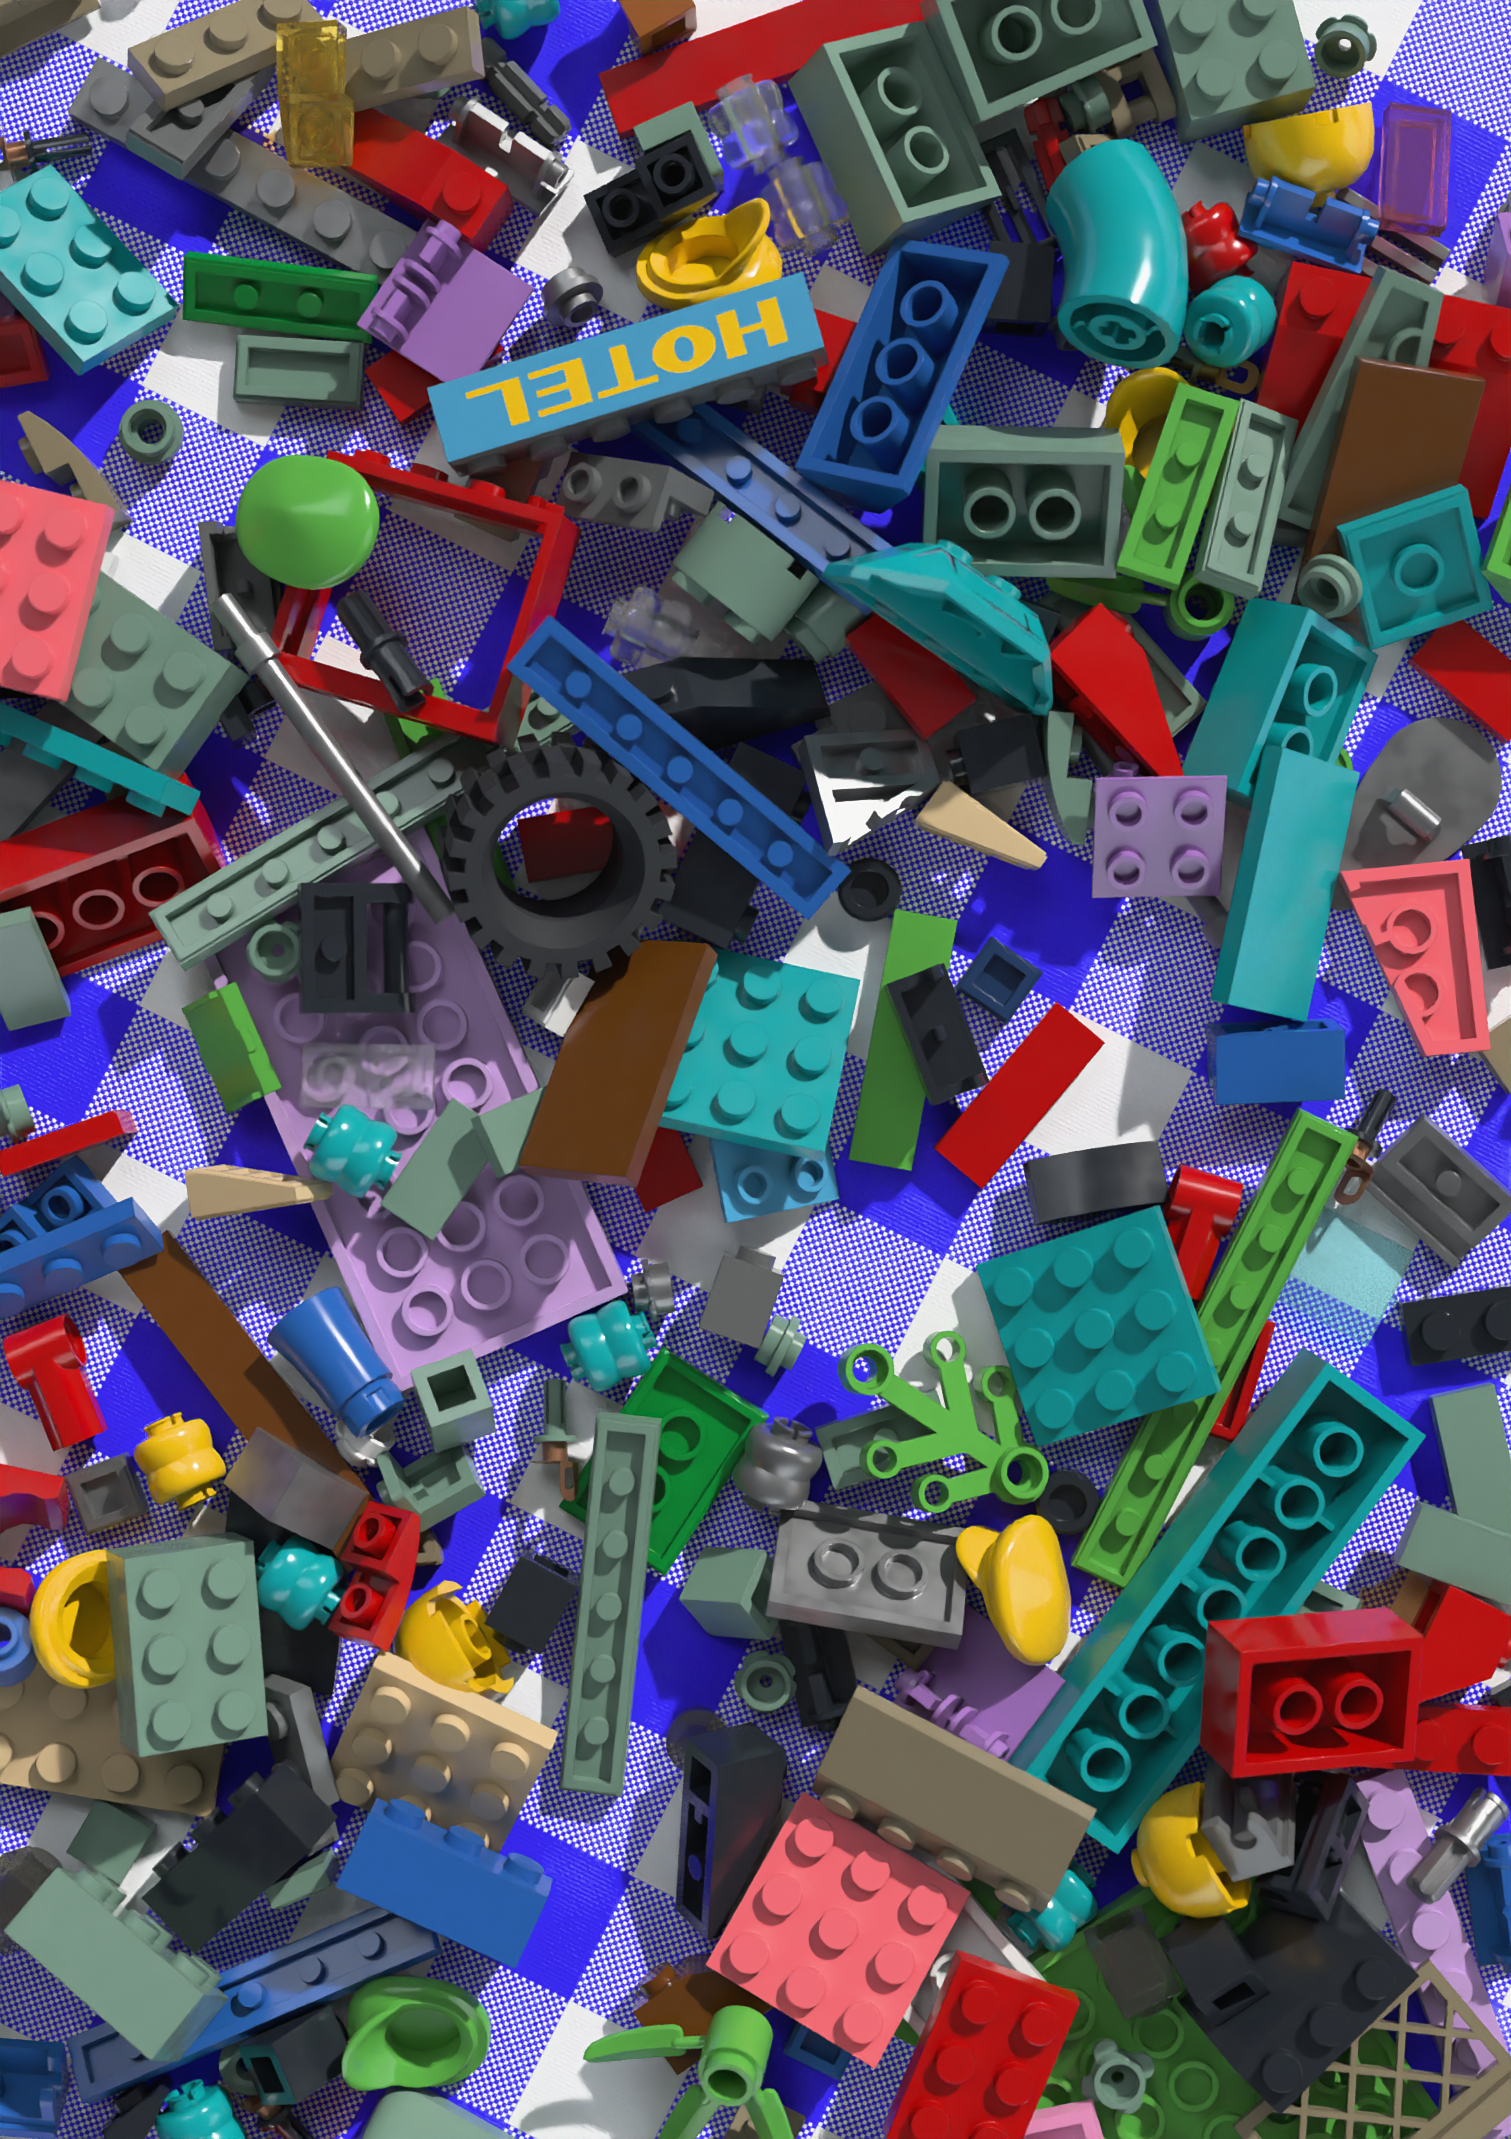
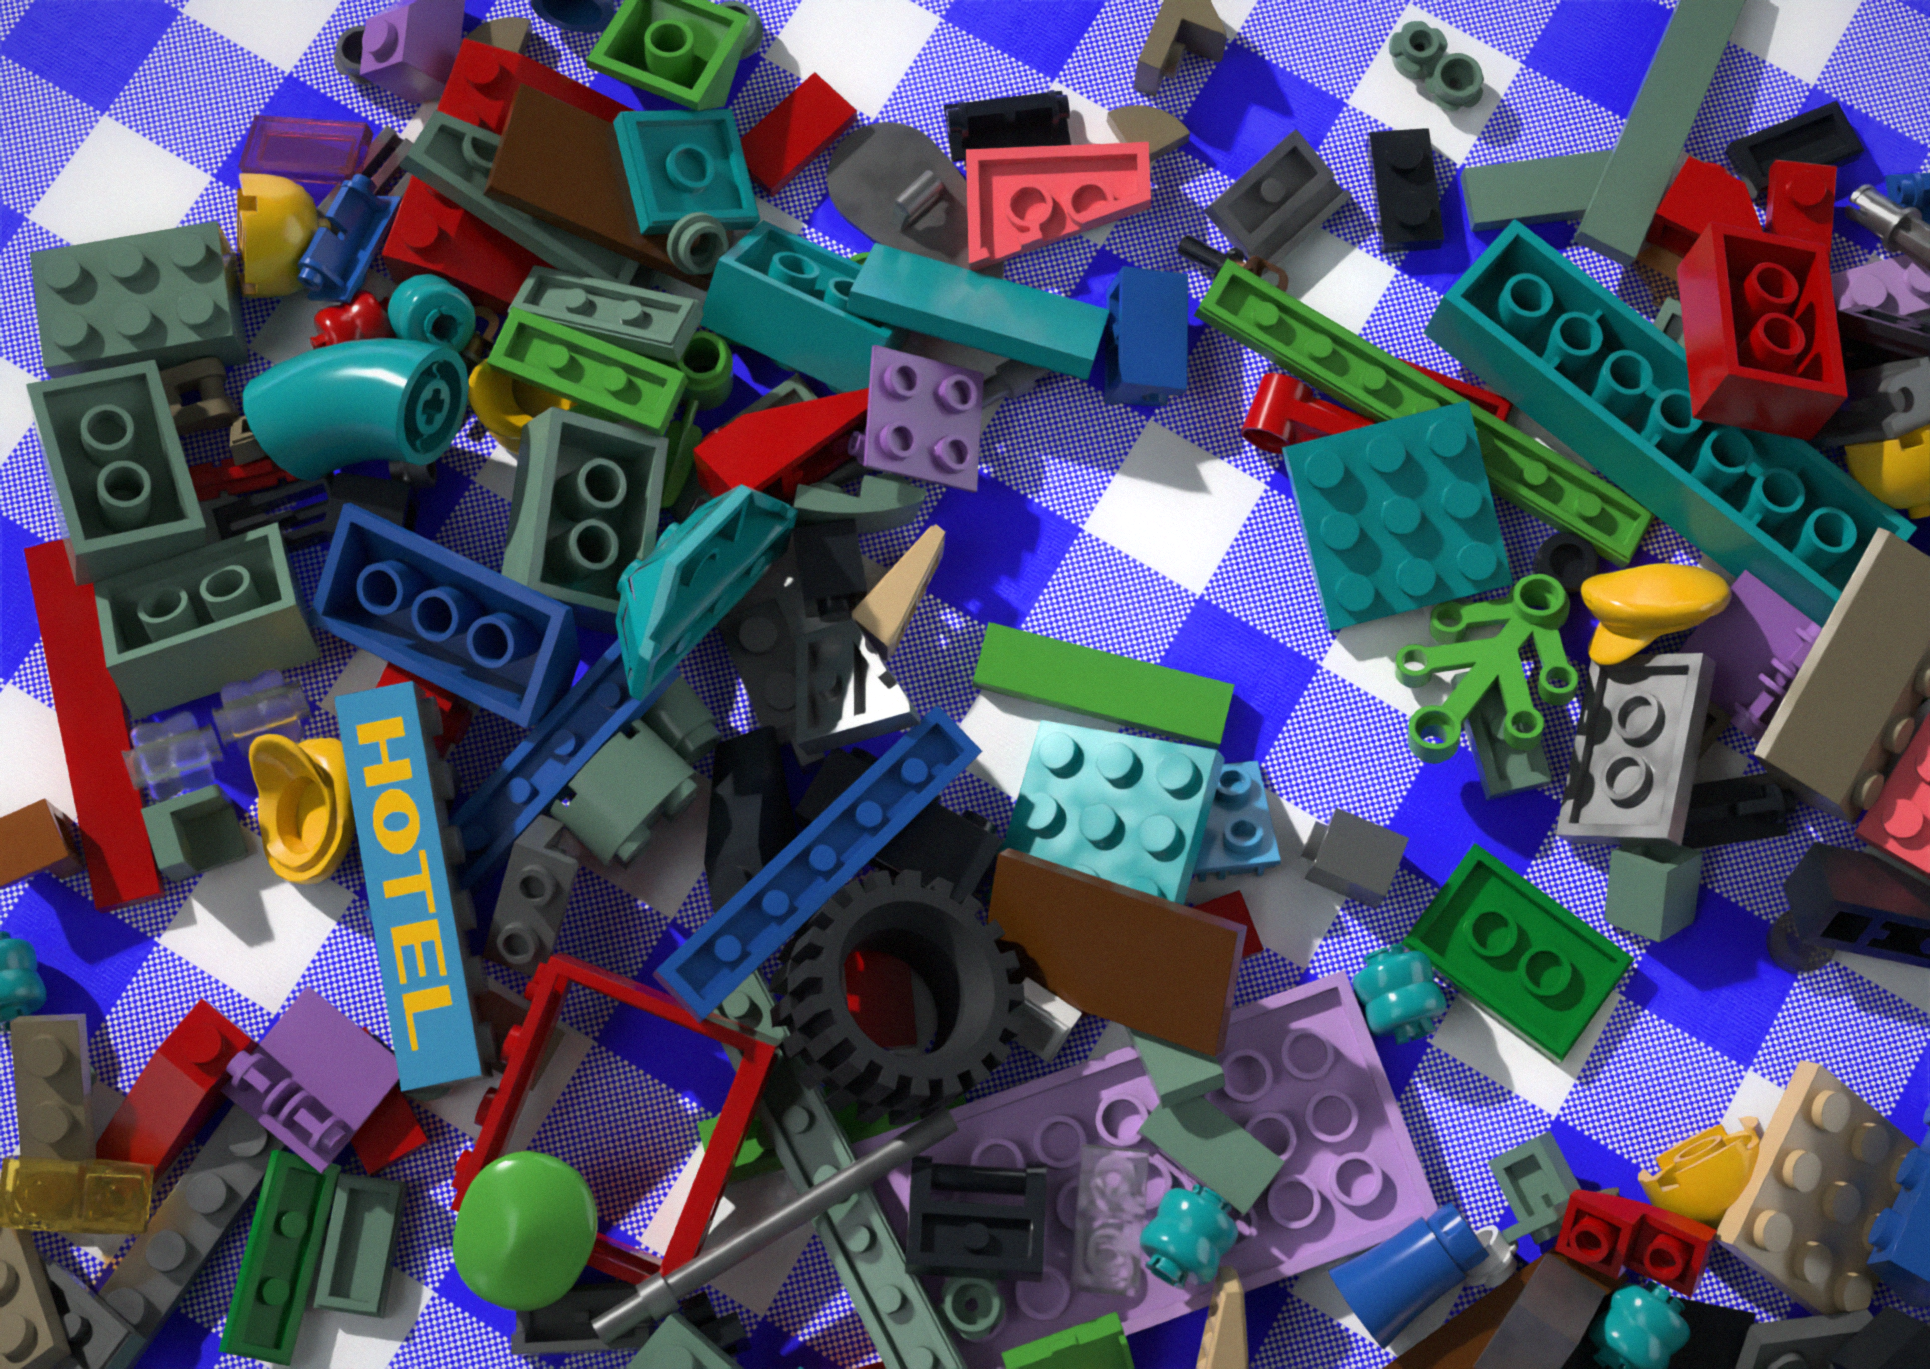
camera: 85 degrees left, 15 degrees down
(383, 651) = (669, 1156): black axle -> none
(453, 1401) = (1452, 1155): brick -> none
(521, 163) = (175, 991): flat silver hinge -> none
(523, 96) = (112, 984): dark grey axle -> none
(531, 1602) = (1660, 1094): black brick -> none
(555, 1440) = (1492, 1060): piece -> none
(571, 297) = (322, 952): flat silver plate -> none
(610, 1603) = (1659, 1012): sand green tile -> none
(649, 629) = (670, 897): clear piece -> none
(653, 196) = (229, 861): black slope -> none
(653, 1289) = (1342, 946): flat silver plate -> none
(762, 1698) = (1755, 856): sand green plate -> none
(777, 1466) = (1526, 834): flat silver piece -> none
(780, 1344) = (1406, 819): sand green plate -> none
(869, 890) = (957, 698): black tile -> none
(910, 675) = (743, 642): red tile -> none
(936, 1034) = (1103, 647): black hinge -> none
(998, 980) = (1049, 590): dark blue tile -> none
(1018, 1095) = (1164, 579): red tile -> none
(1085, 105) = (202, 438): sand green plate -> none
(1096, 1182) = (1255, 510): black slope -> none
(1341, 60) = (192, 201): sand green plate -> none
(1346, 1276) = (1358, 289): clear light blue piece -> none

